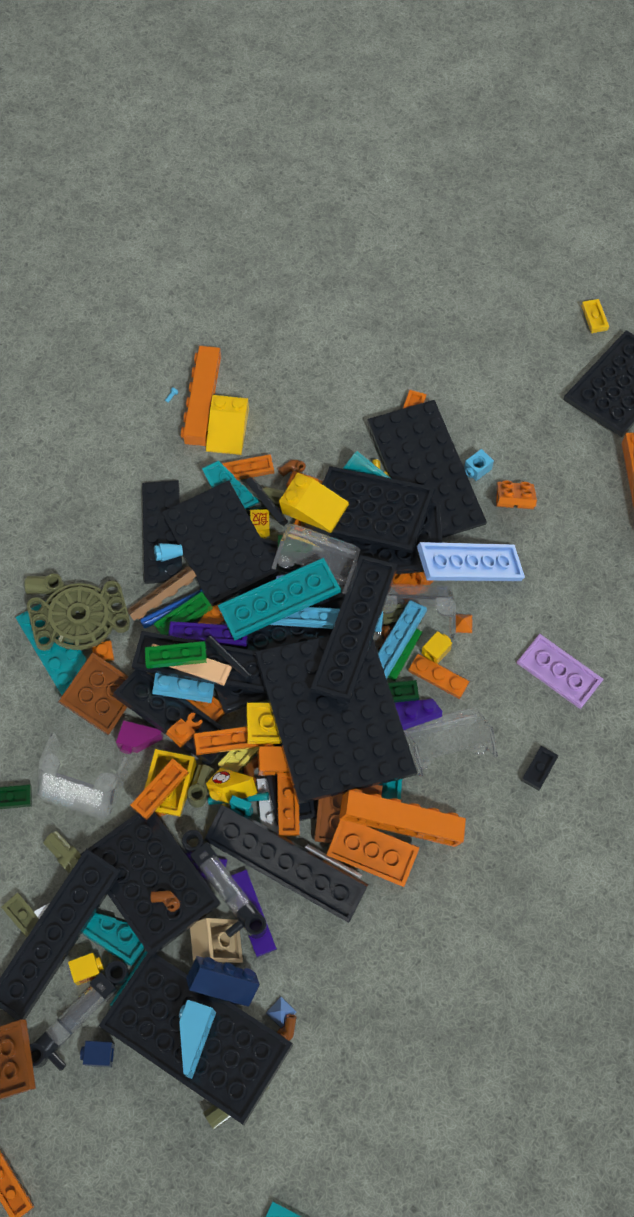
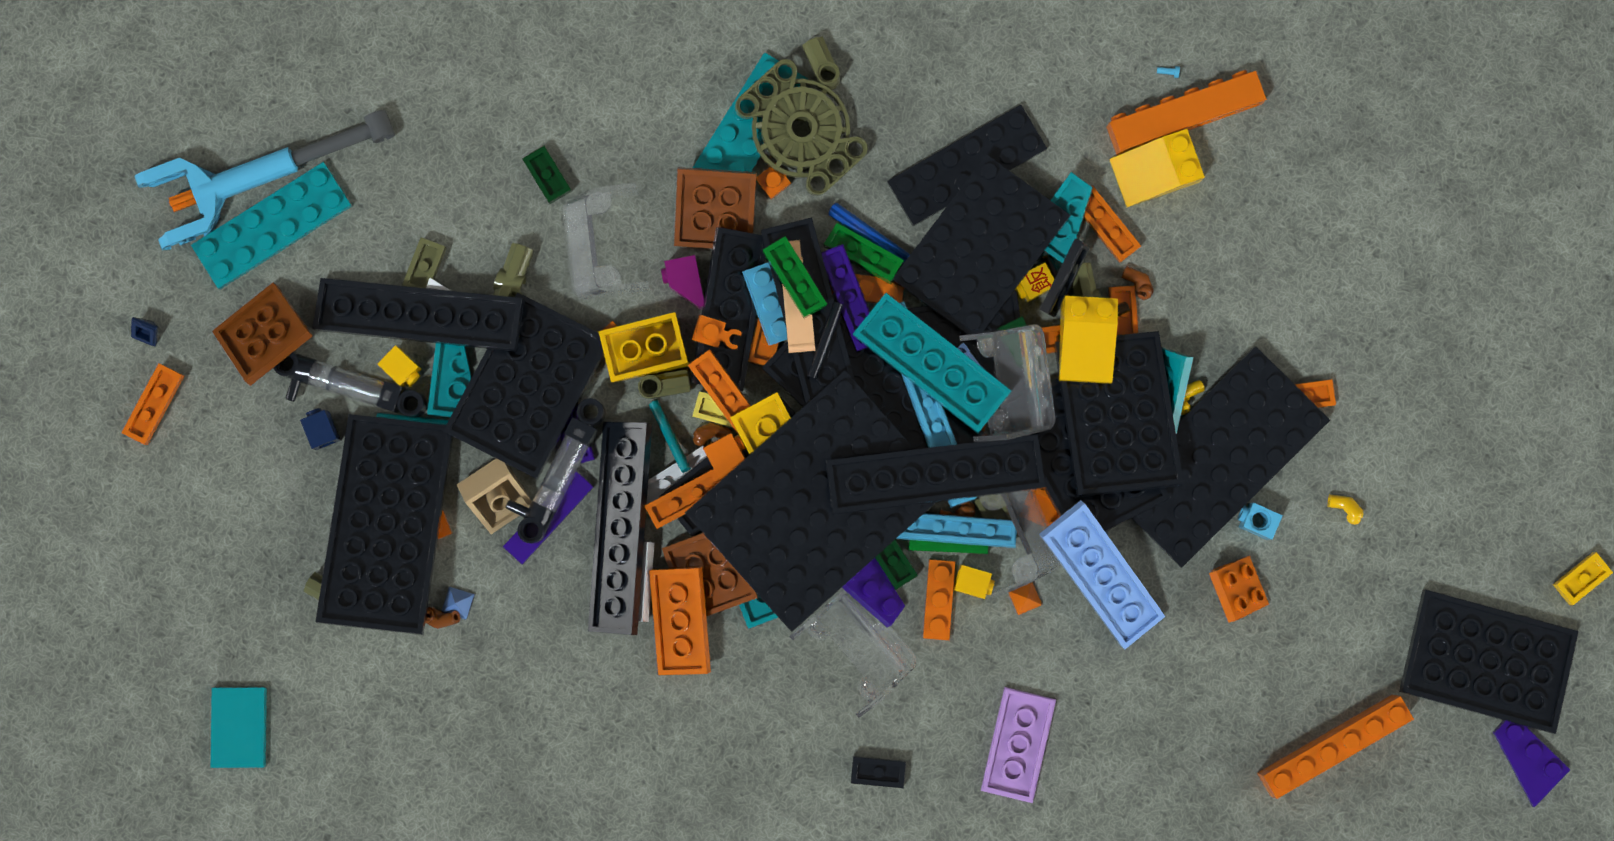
camera: 60 degrees right, 20 degrees up
(159, 789) = (627, 344): orange plate -> none
(165, 590) = (879, 211): medium nougat plate -> none
(167, 551) = (936, 190): medium azure cone -> none
(168, 898) = (512, 417): dark orange arm -> none
(194, 1029) = (383, 522): medium azure slope -> none
(222, 981) = (452, 525): dark blue brick -> none
(228, 783) = (676, 420): yellow slope -> none
(242, 806) = (656, 446): teal tile -> none
(402, 818) = (730, 638): orange brick -> none
(497, 413) = (1349, 505): none -> yellow arm

